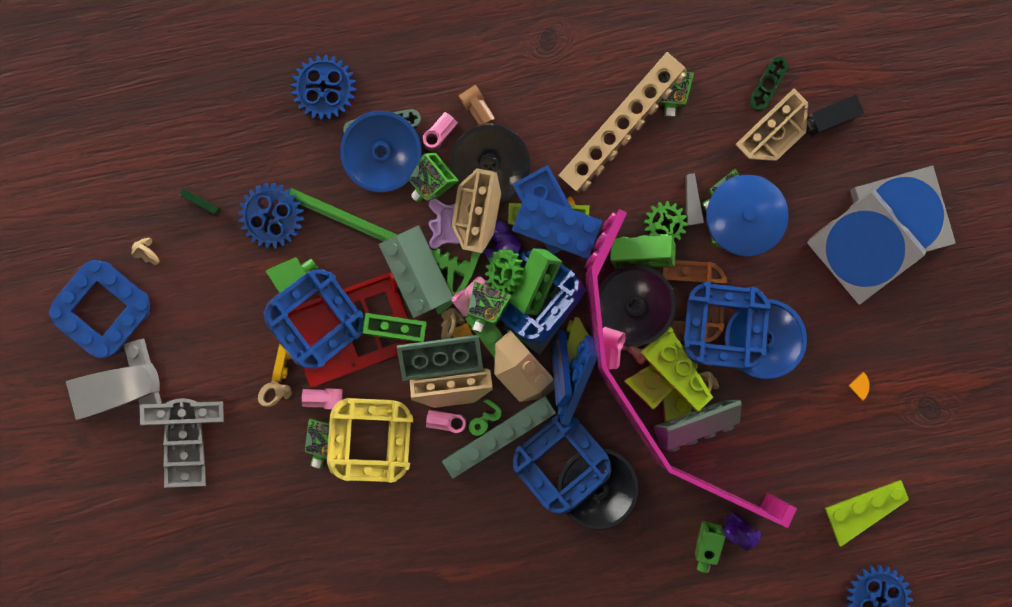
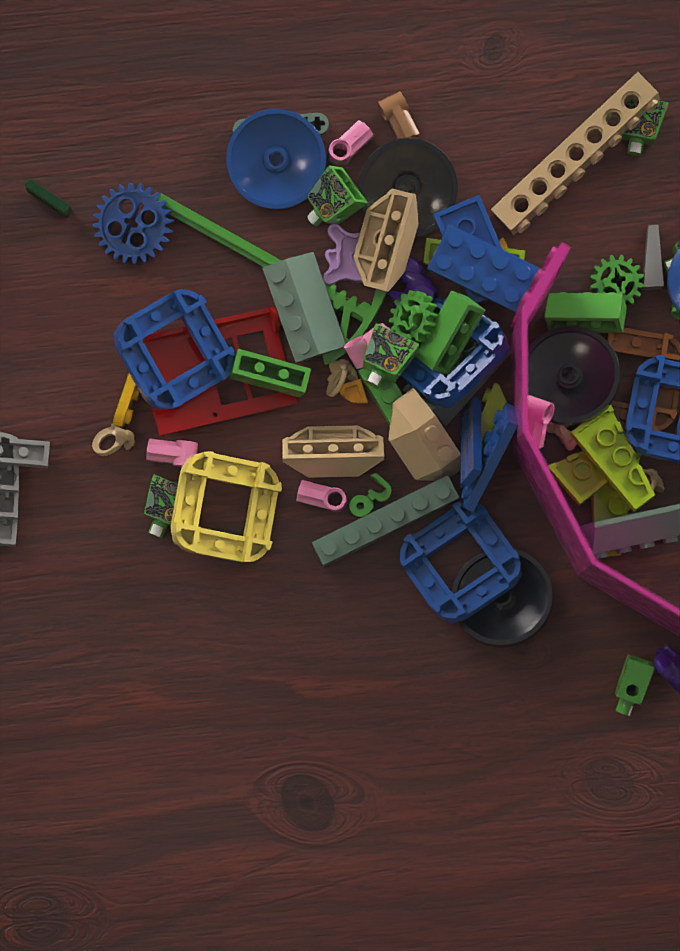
camera: 10 degrees right, 5 degrees down
(289, 271) = (146, 292): bright green torso -> none
(326, 70) = (209, 97): blue gear -> none
(440, 357) = (323, 414): sand green slope -> none

